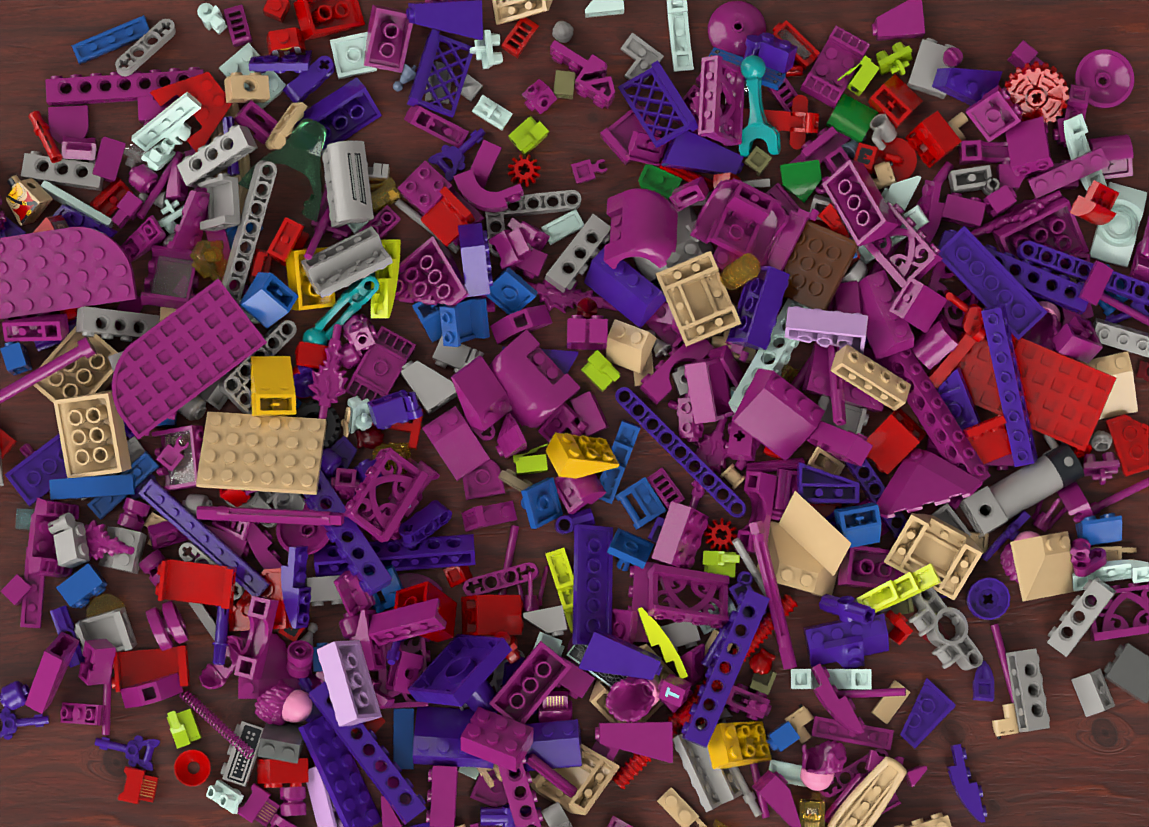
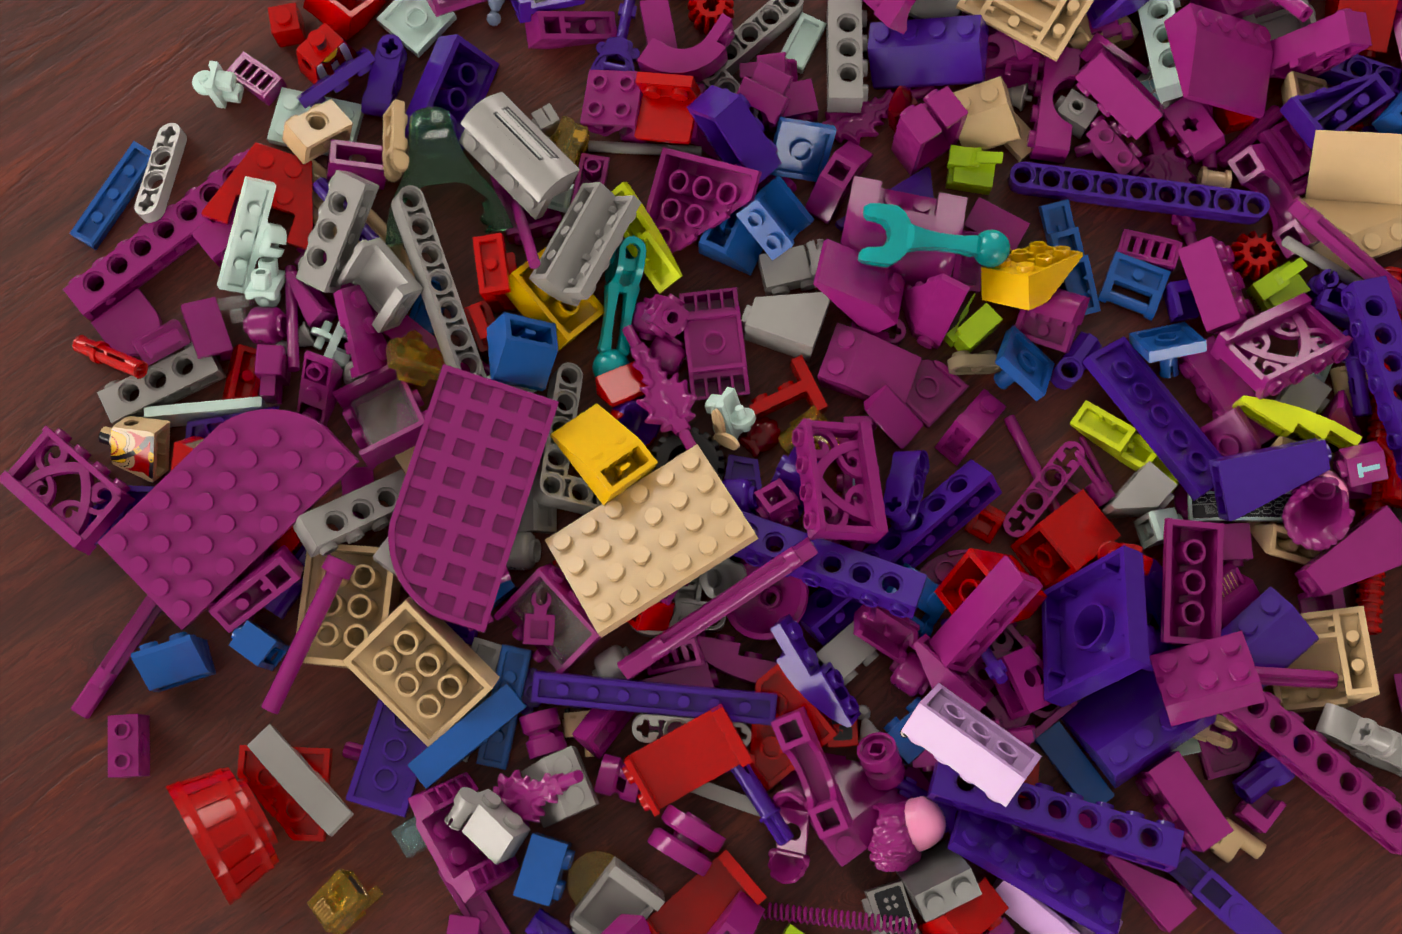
camera: 30 degrees left, 5 degrees down
(394, 409) = (770, 375): dark purple hinge -> none
(447, 479) = (893, 416): none -> magenta slope
(564, 425) = (988, 248): none -> teal piece

